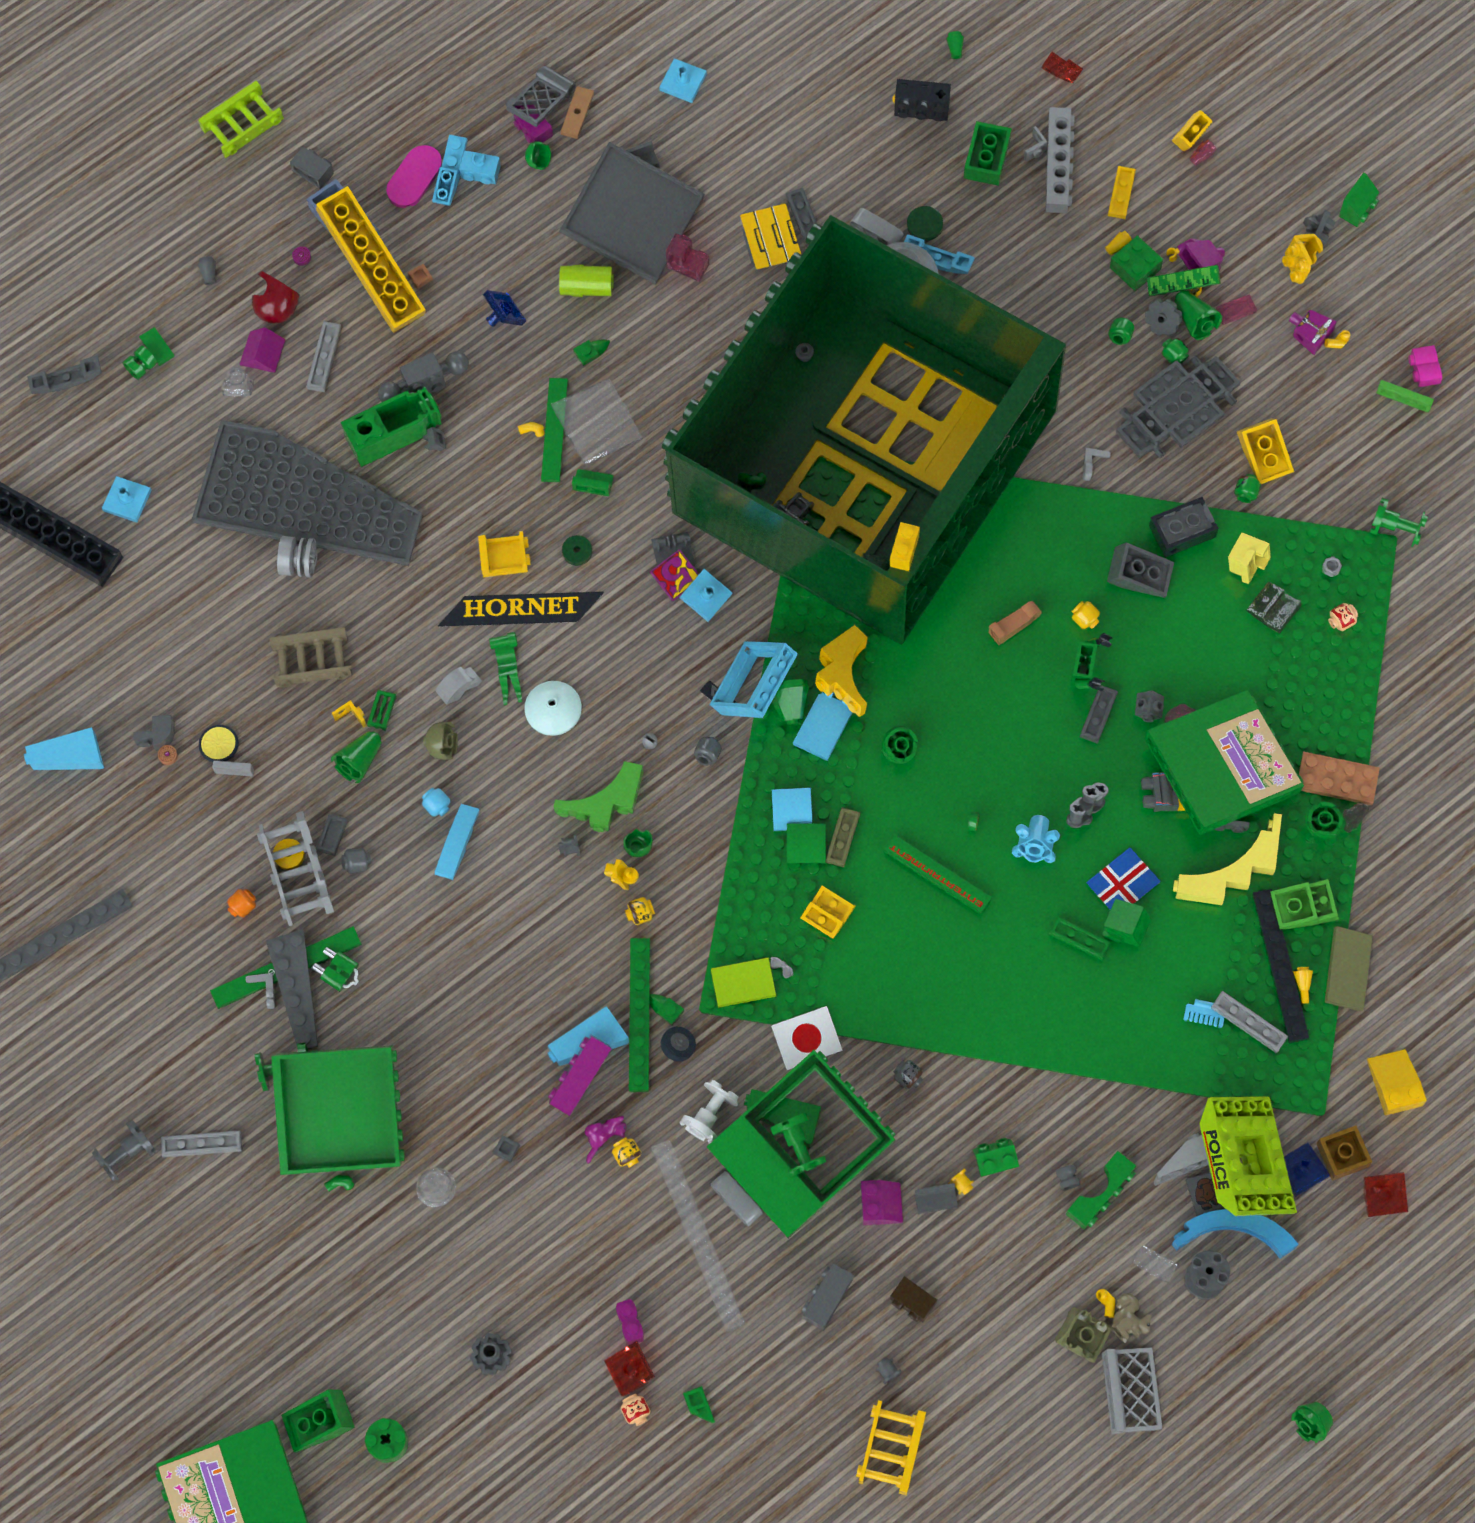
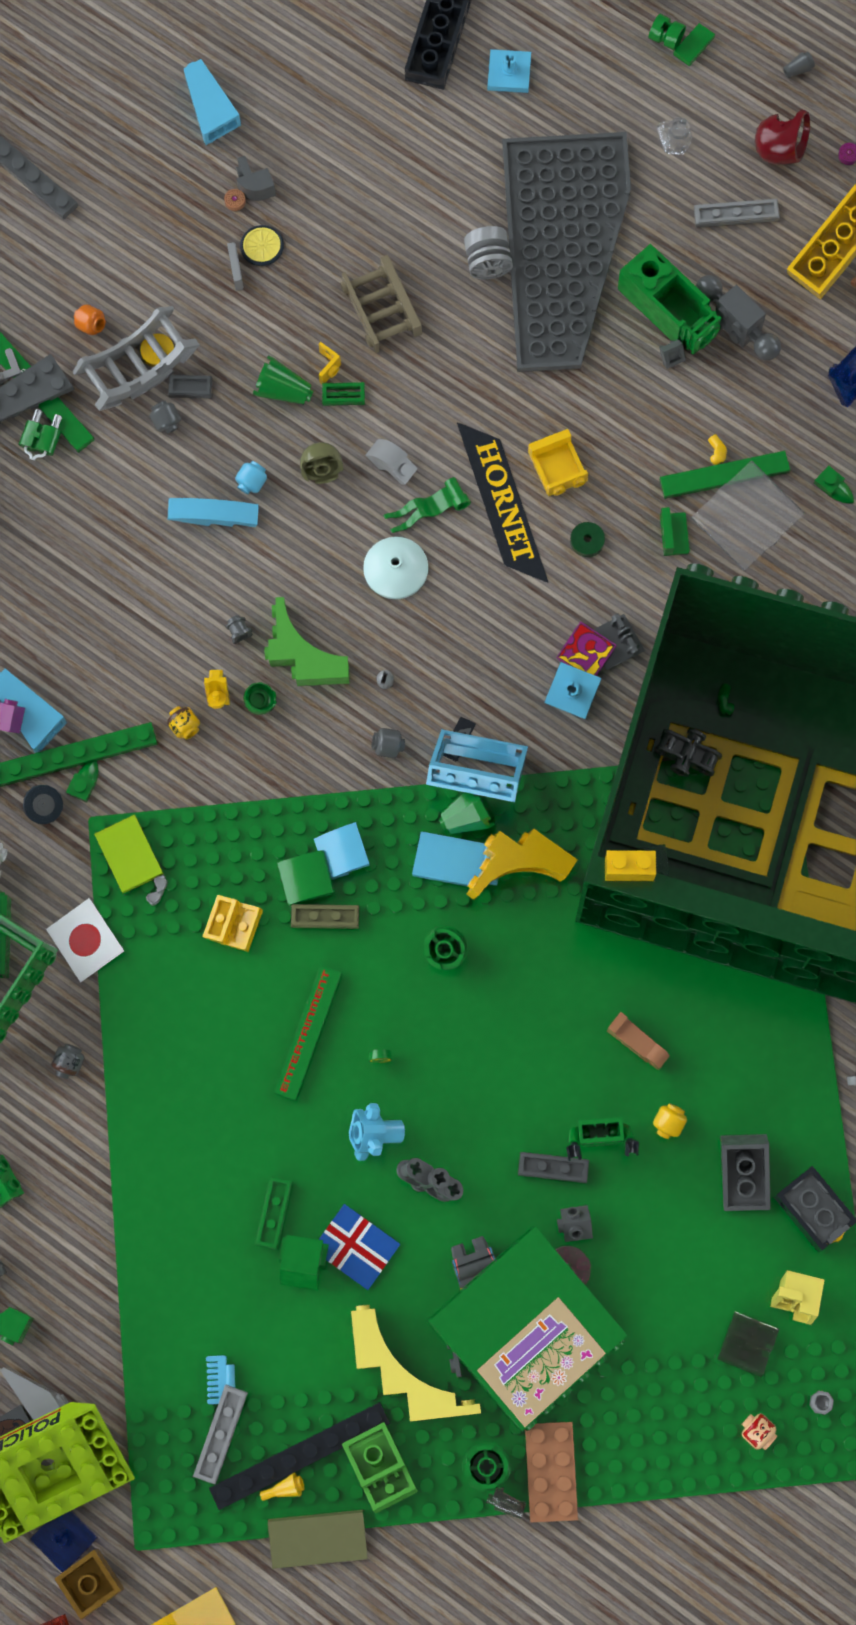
camera: 75 degrees right, 5 degrees up
(262, 350) = (723, 150): magenta slope -> none

